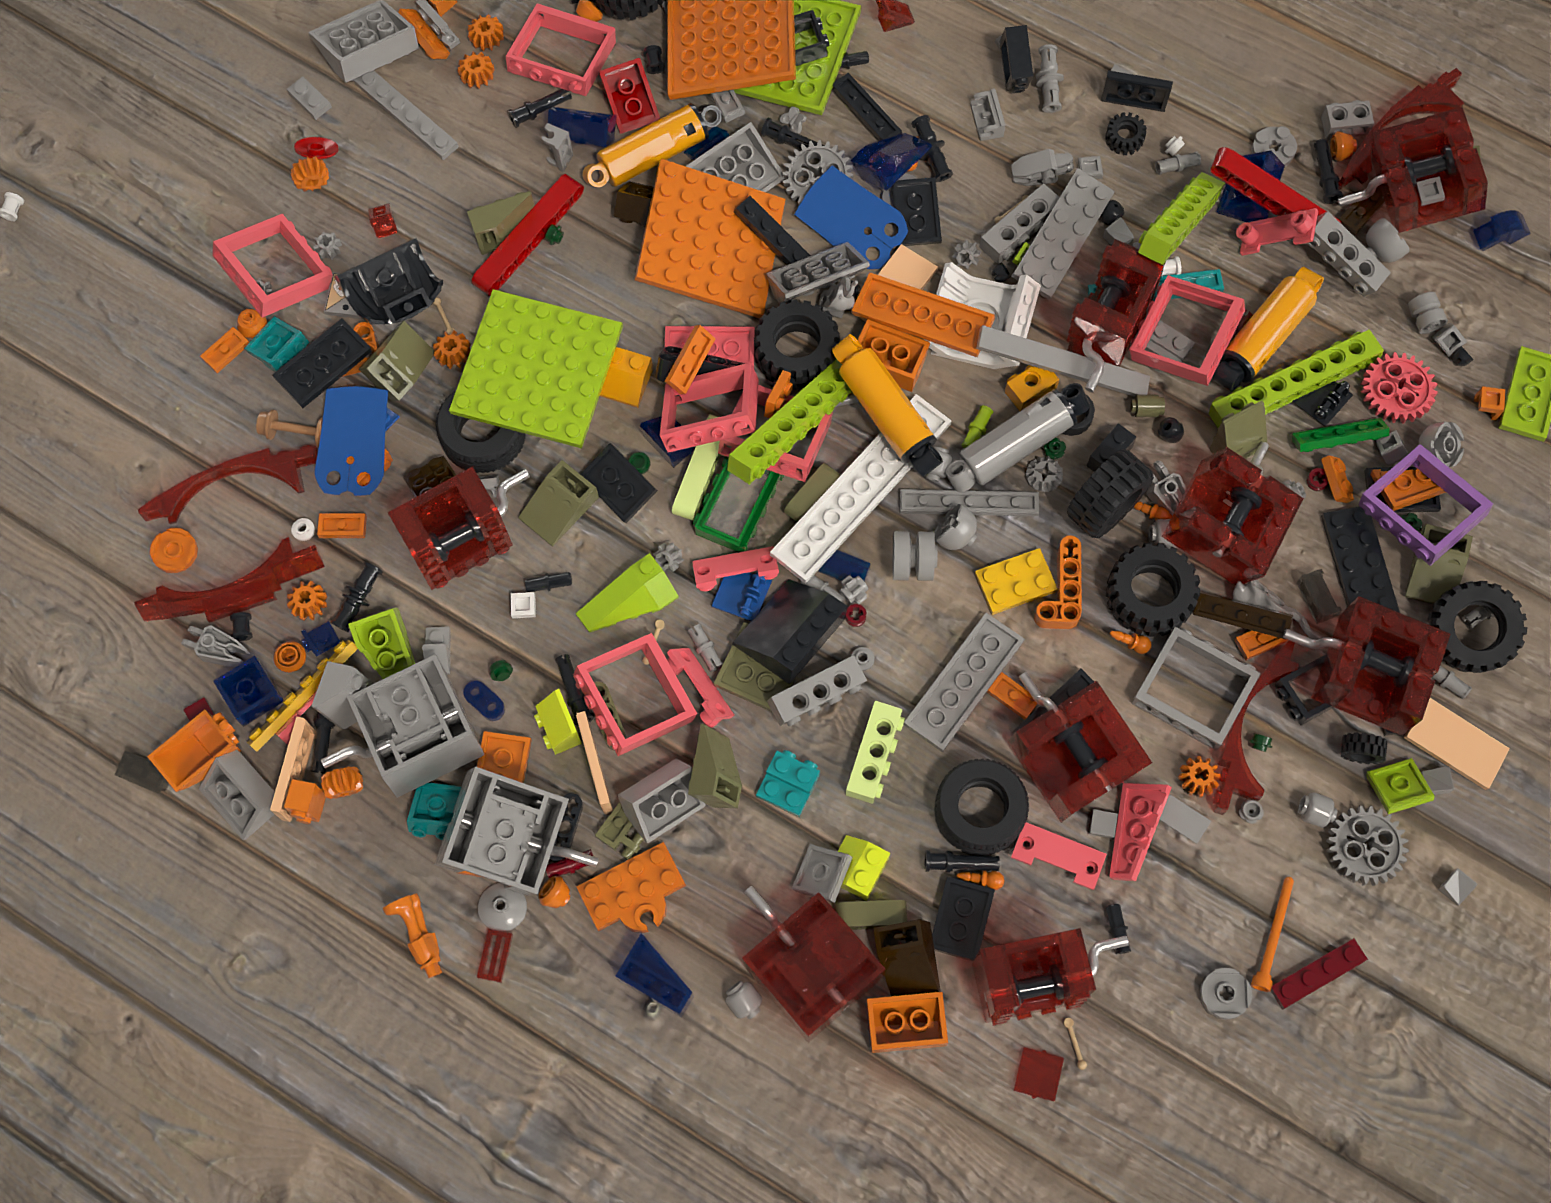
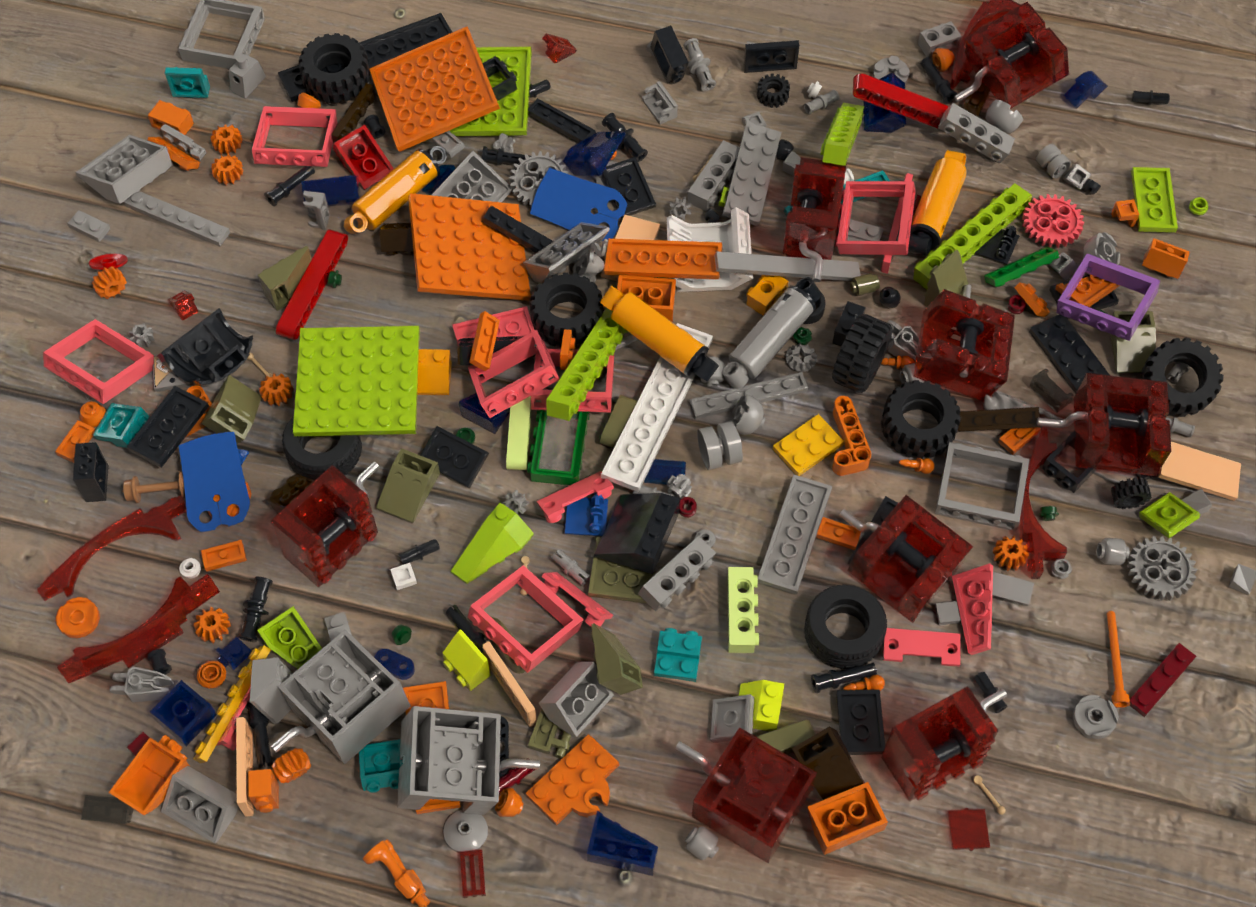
camera: 20 degrees left, 10 degrees down
(223, 398) = (88, 470): none -> black window
(635, 38) = (354, 113): none -> dark brown plate
(978, 426) = (735, 335): lime pin -> none
(1041, 167) = (716, 130): light grey hinge -> none
(1184, 383) = (895, 228): none -> coral tile
(1295, 226) = (933, 120): coral brick -> none
(1430, 191) = (1024, 70): light grey plate -> none
(1516, 473) = (1165, 258): none -> orange brick

